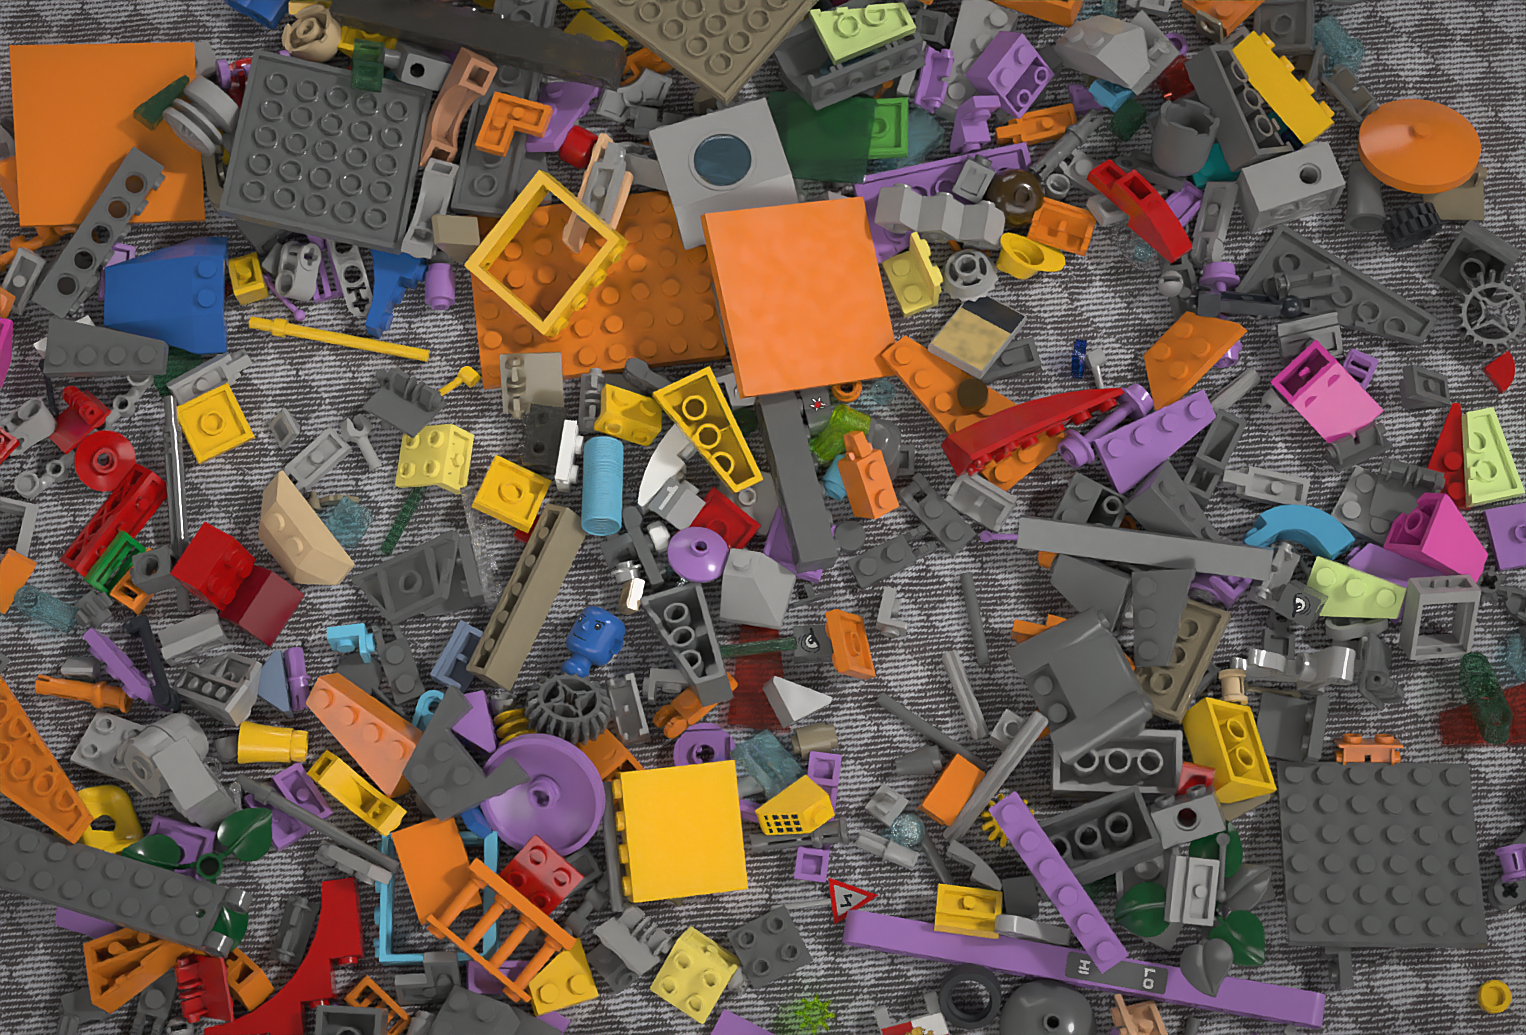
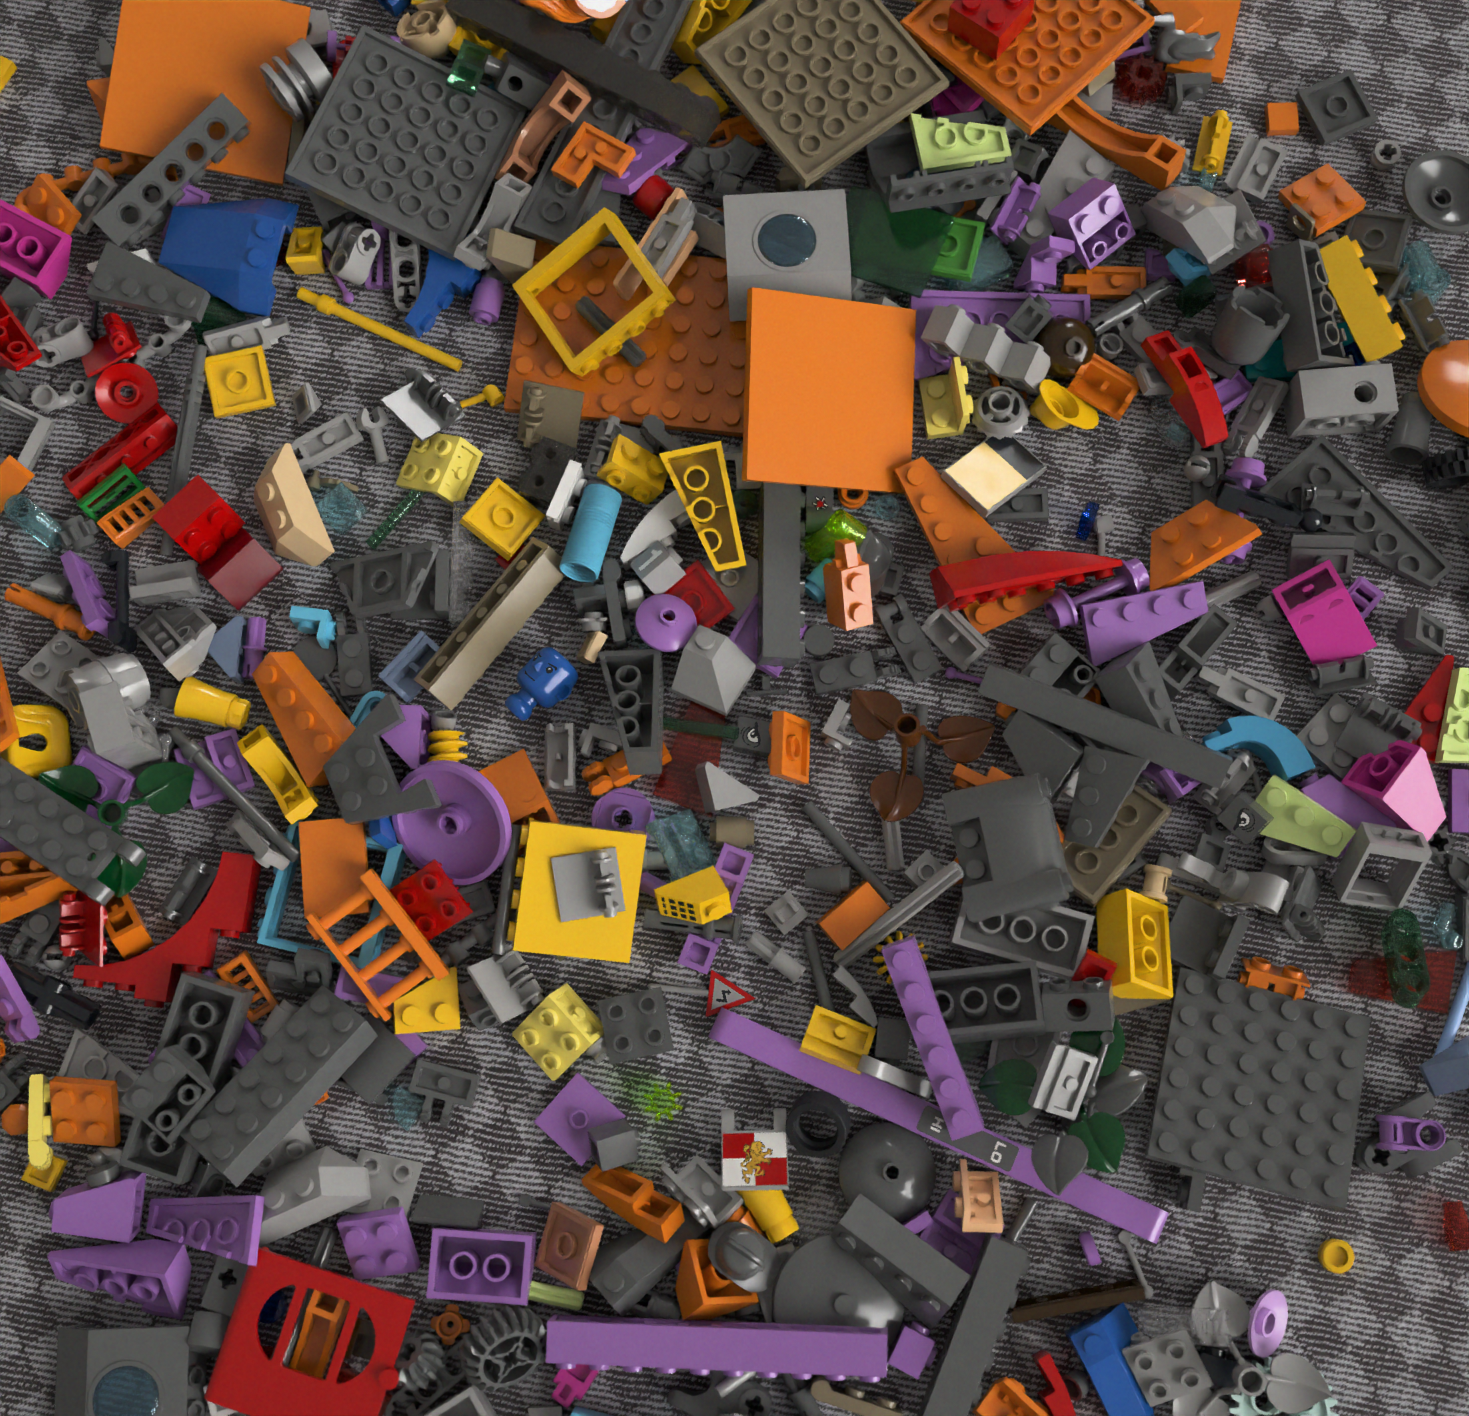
camera: 15 degrees right, 5 degrees up
(146, 562) = (139, 507): dark grey brick -> none
(151, 111) = (249, 62): clear green slope -> none
(563, 282) = (602, 323): none -> dark grey axle
(568, 708) = (493, 739): dark grey gear -> none
(690, 821) = (588, 884): none -> light grey hinge
(908, 830) = (800, 943): clear light blue tile -> none
(925, 591) = (876, 712): none -> reddish brown plant
(972, 394) = (973, 531): dark brown tile -> none

